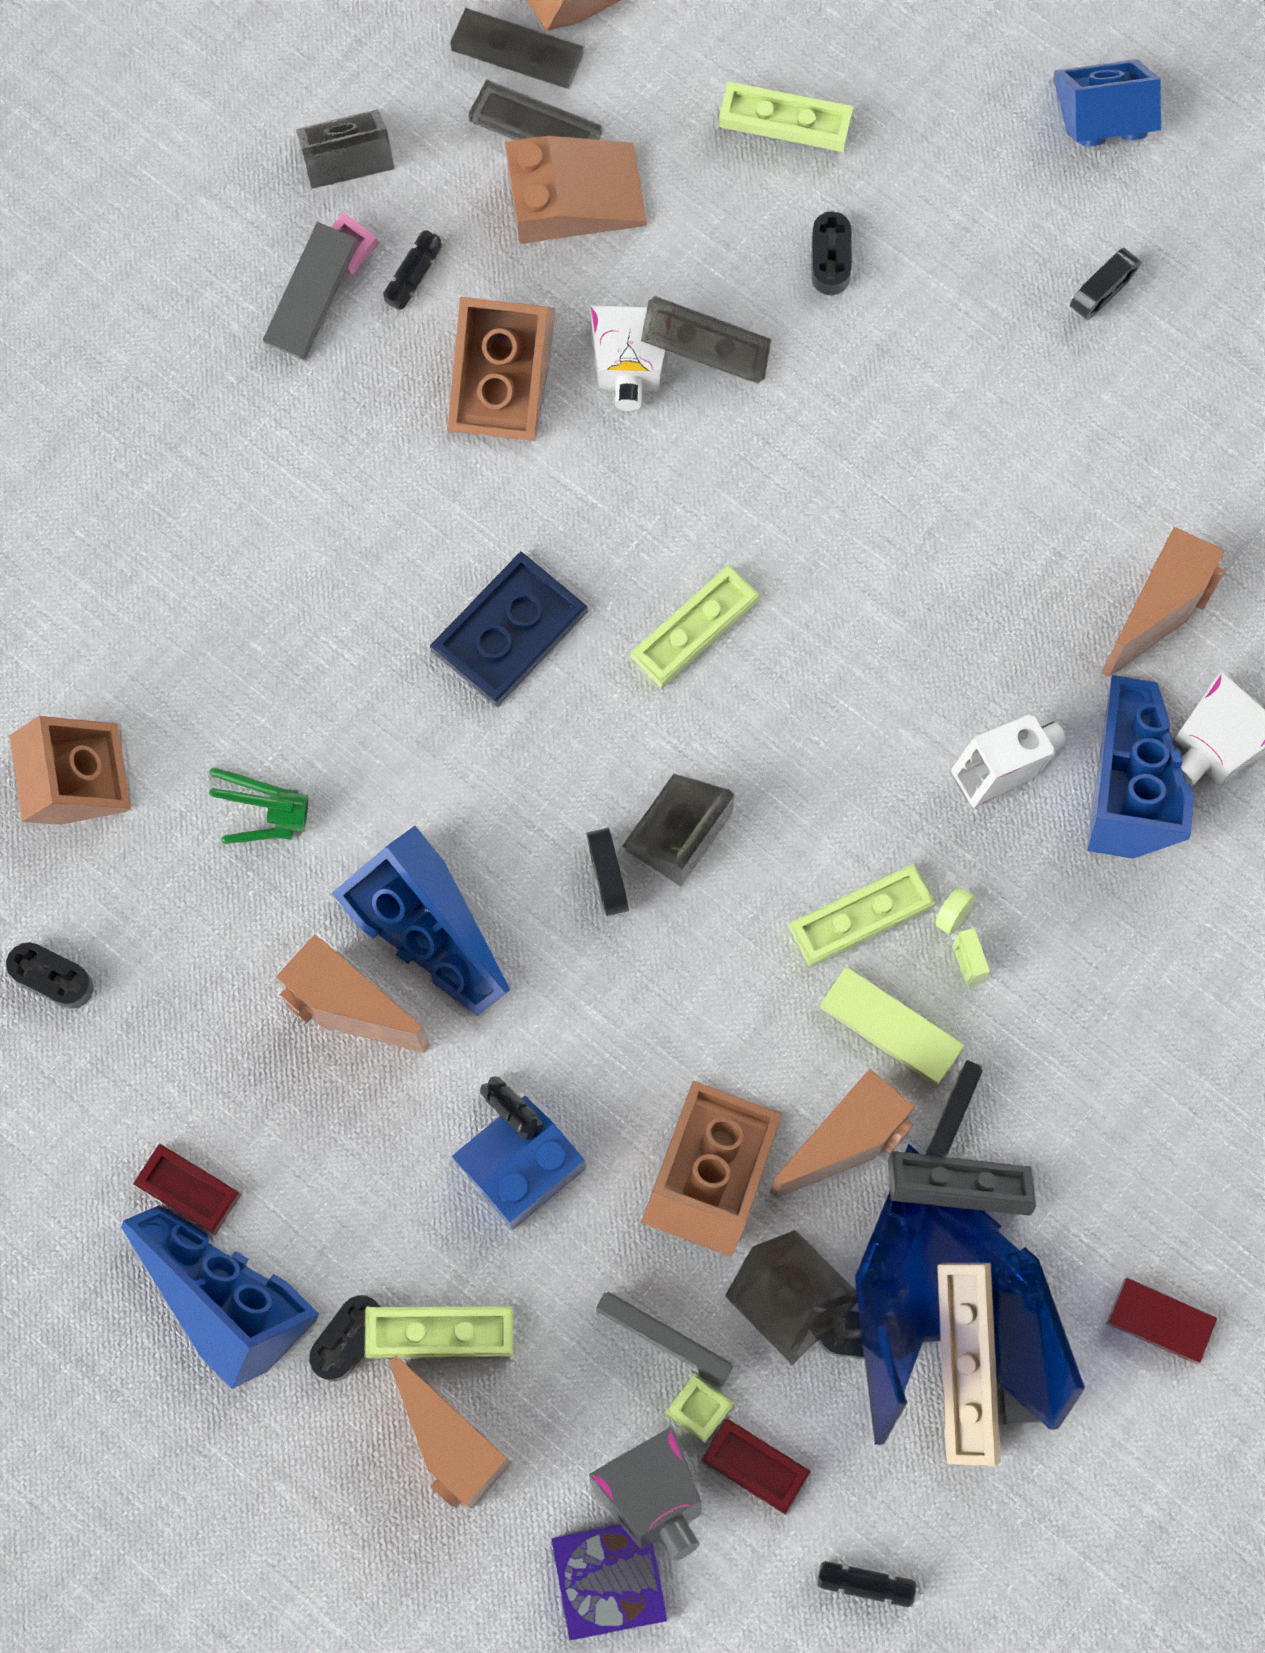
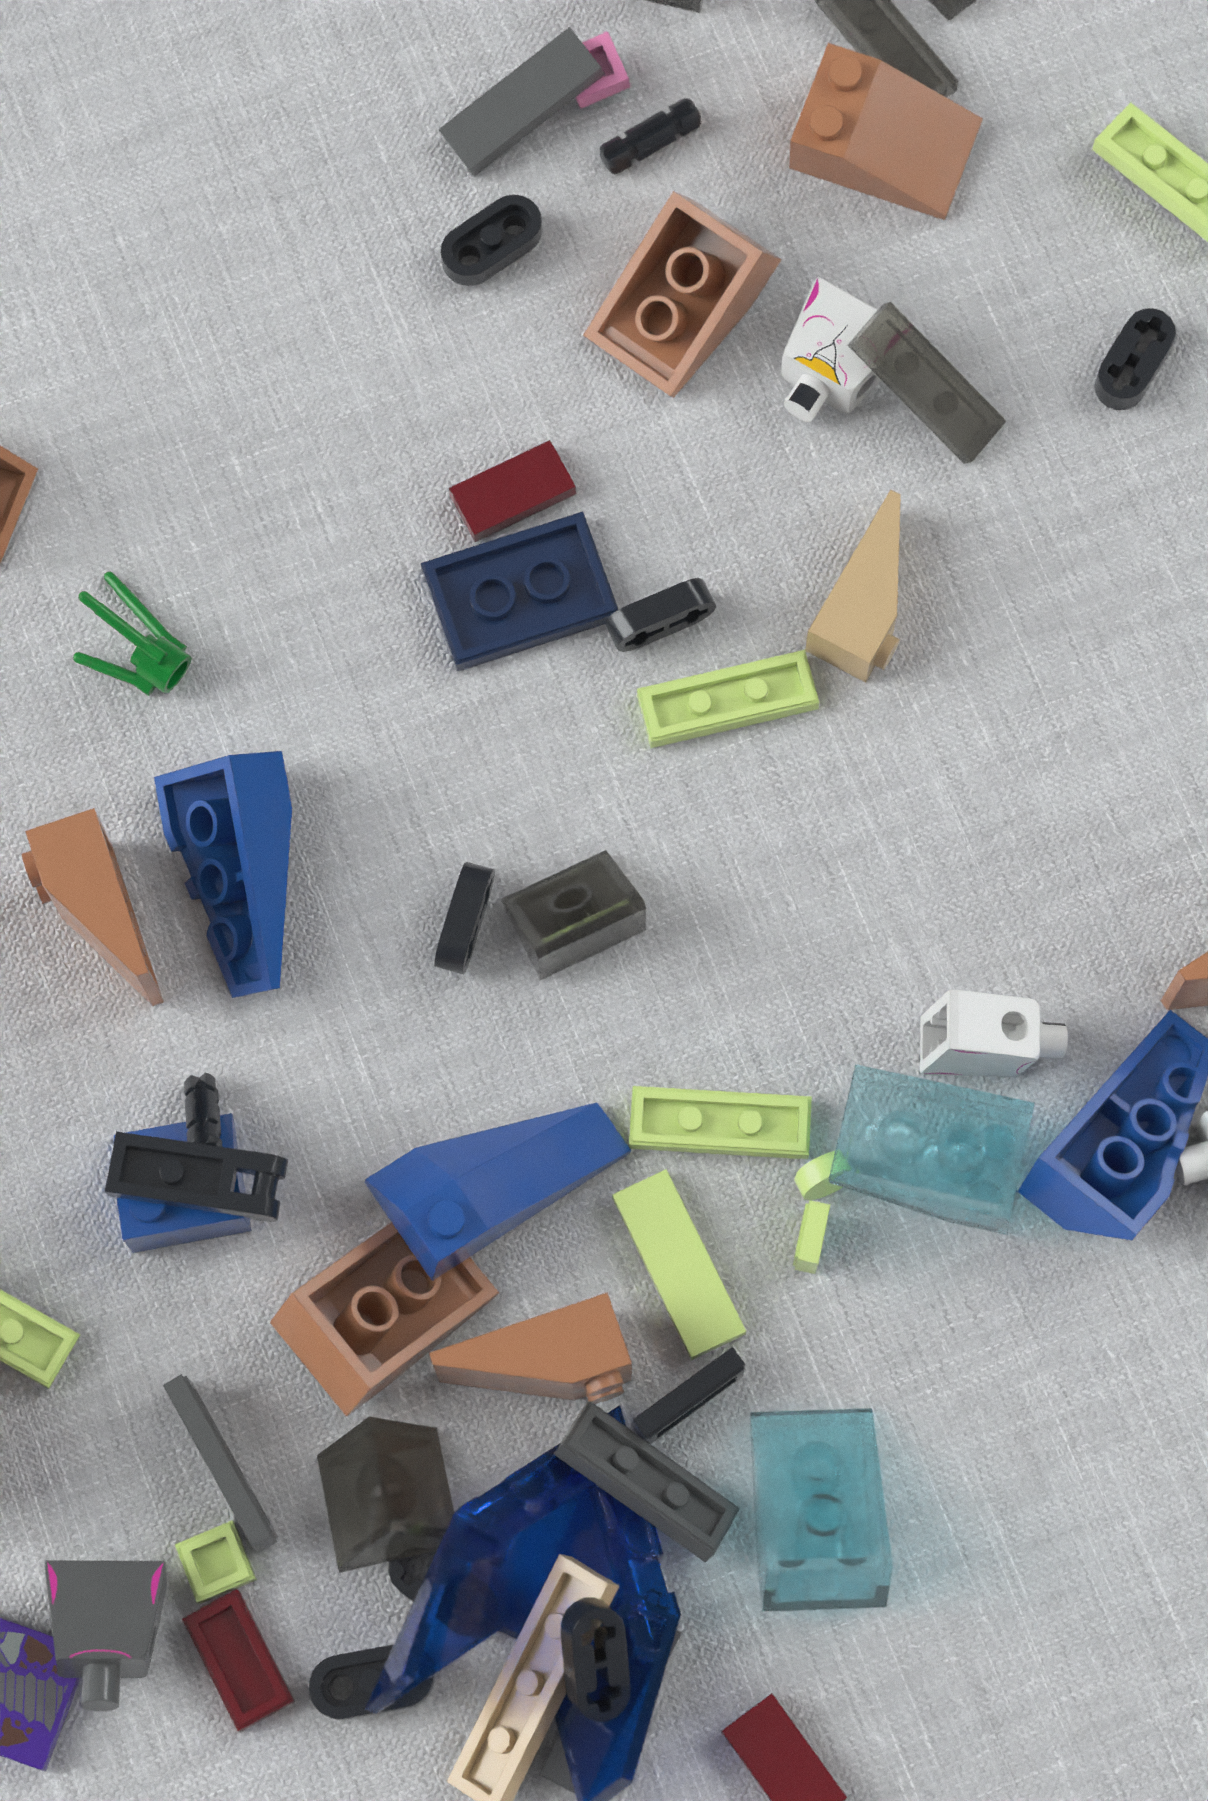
camera: 30 degrees right, 0 degrees up
(344, 400) = (487, 240): none -> black plate
(462, 562) = (512, 491): none -> dark red tile
(538, 1149) = (194, 1176): none -> black plate
(617, 592) = (660, 614): none -> black beam
(729, 1046) = (481, 1185): none -> blue wedge
(752, 510) = (861, 610): none -> tan slope
(853, 1425) = (364, 1670): none -> black plate
(1001, 1325) = (582, 1660): none -> black beam
(1020, 851) = (933, 1147): none -> clear light blue slope
(1086, 1137) = (819, 1510): none -> clear light blue slope

